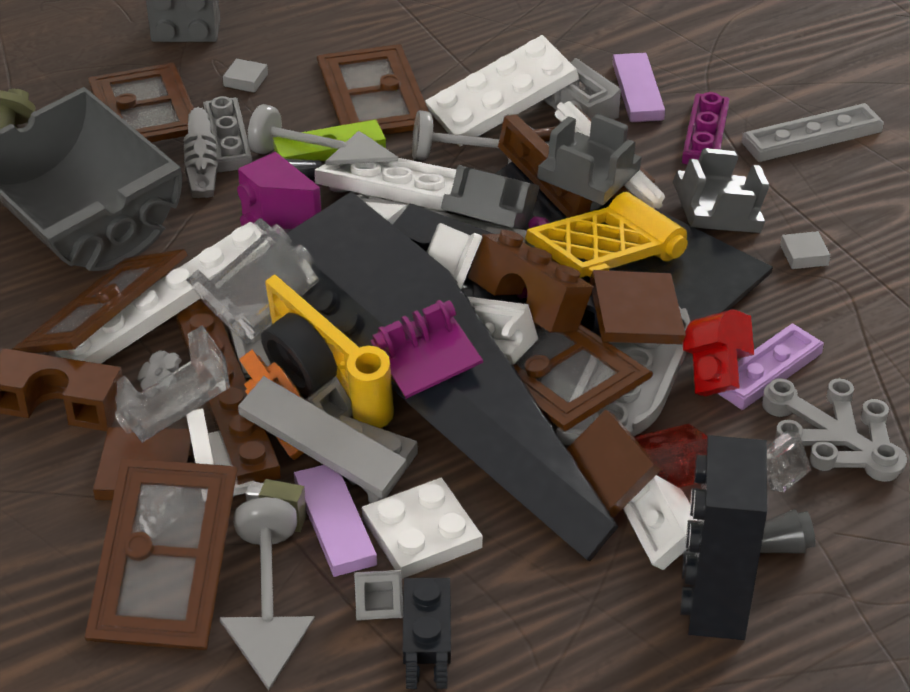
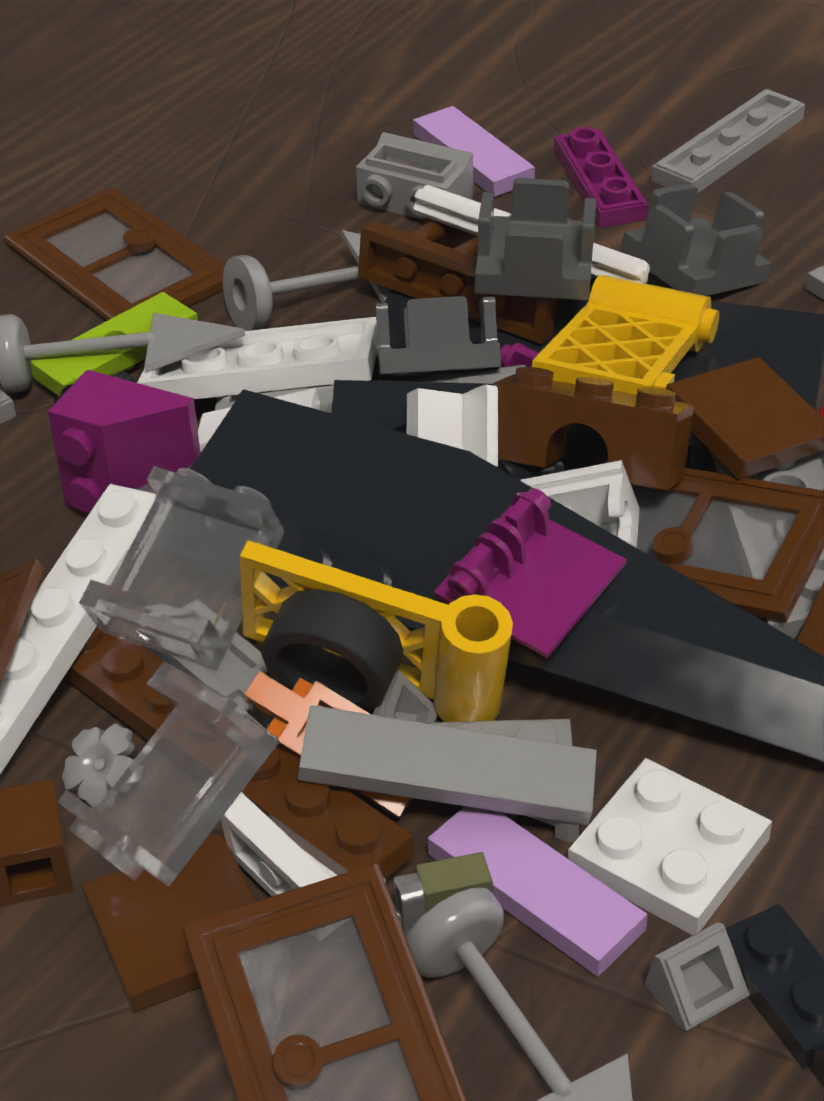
camera: 25 degrees left, 0 degrees up
(502, 89) = (314, 197): white plate -> none

